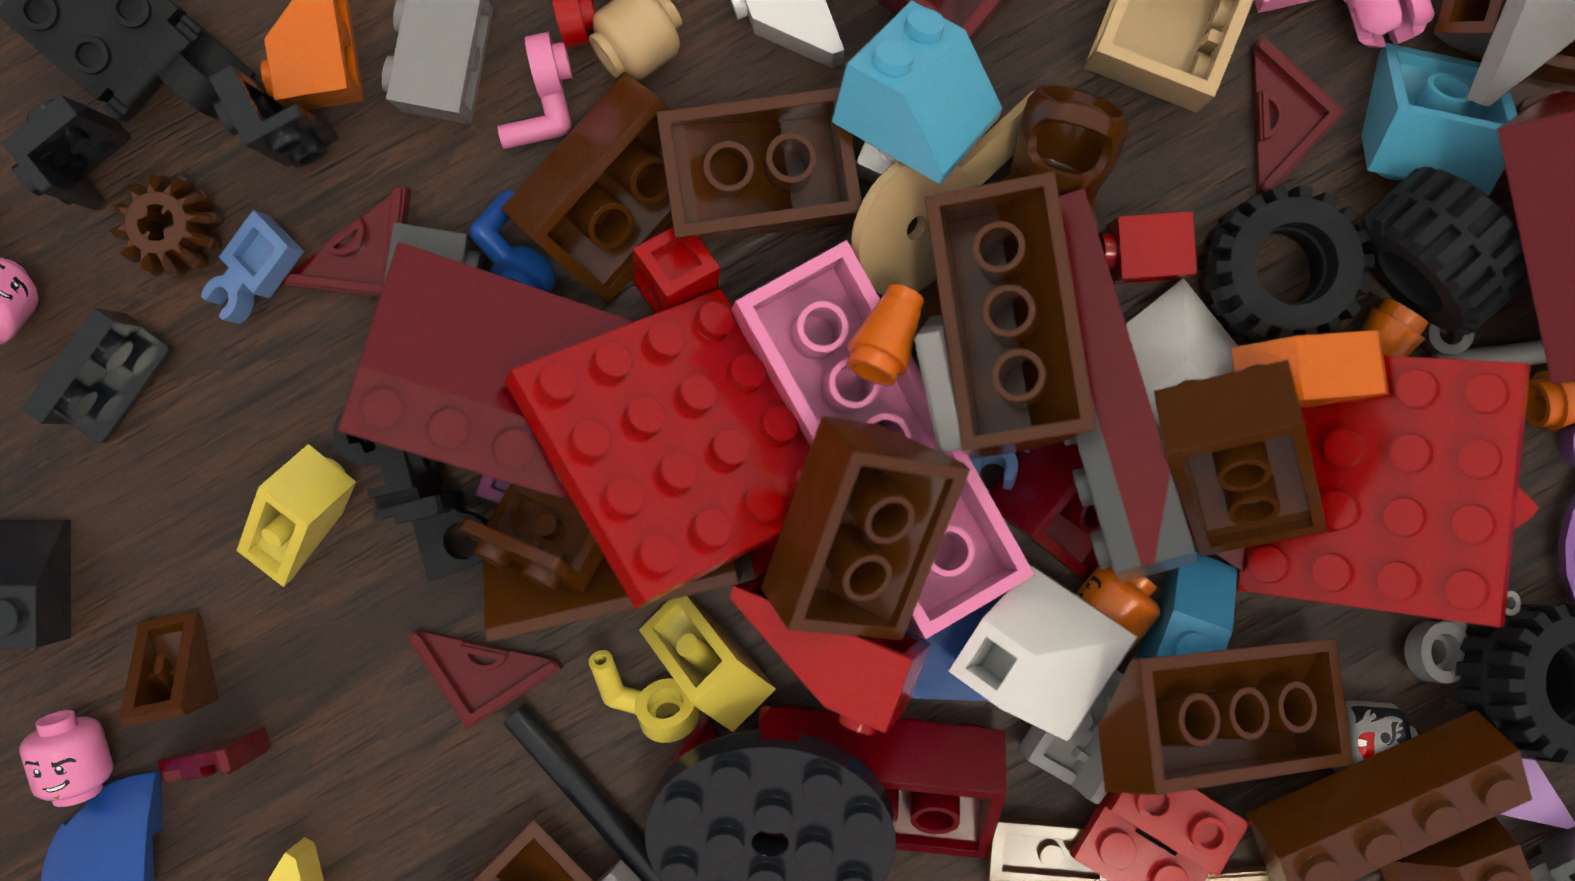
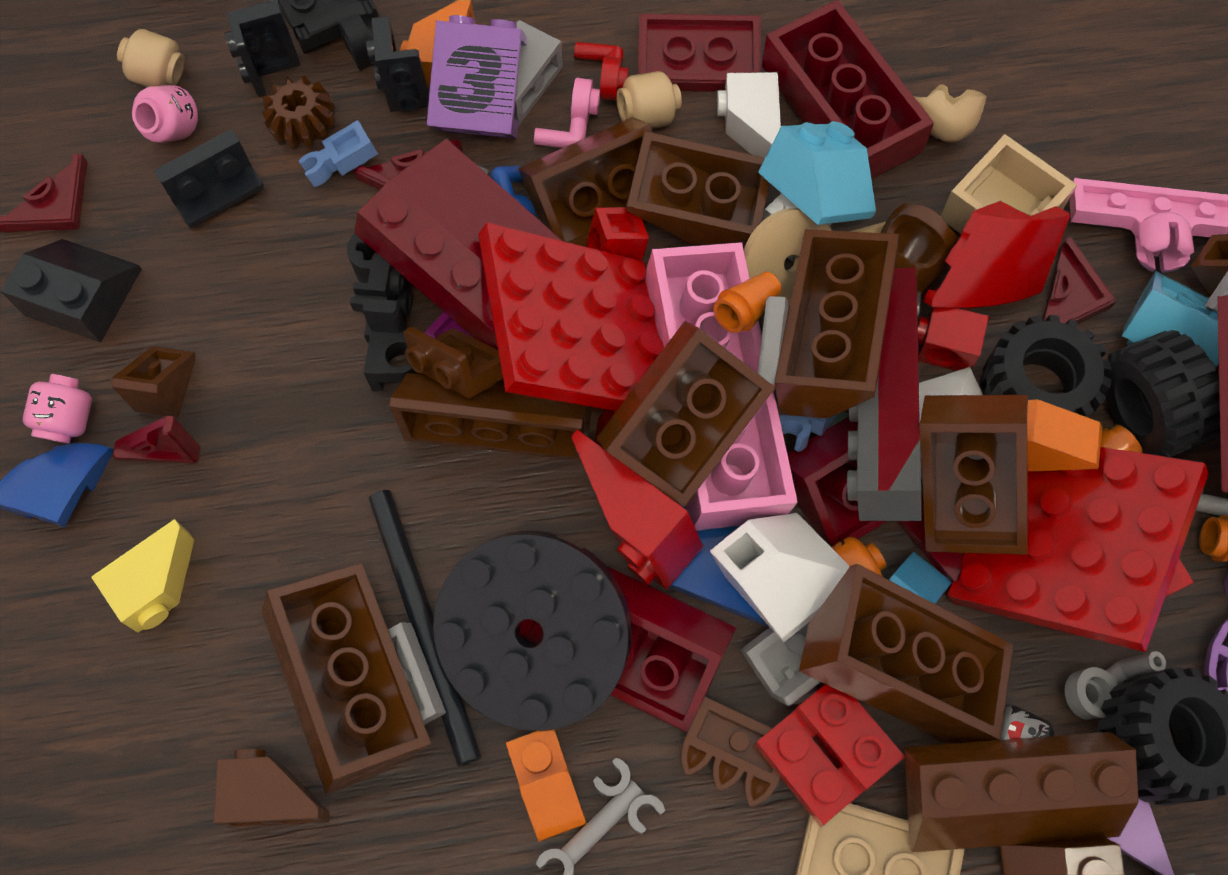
camera: 20 degrees right, 20 degrees down
(294, 513) = (292, 307): light yellow slope -> none
(387, 96) = (475, 77): none -> medium lavender panel
(479, 675) = (369, 464): dark red tile -> none
(649, 705) = (481, 523): light yellow plate -> none
(706, 662) = (534, 498): light yellow slope -> none
(1185, 128) = (1000, 257): none -> red slope

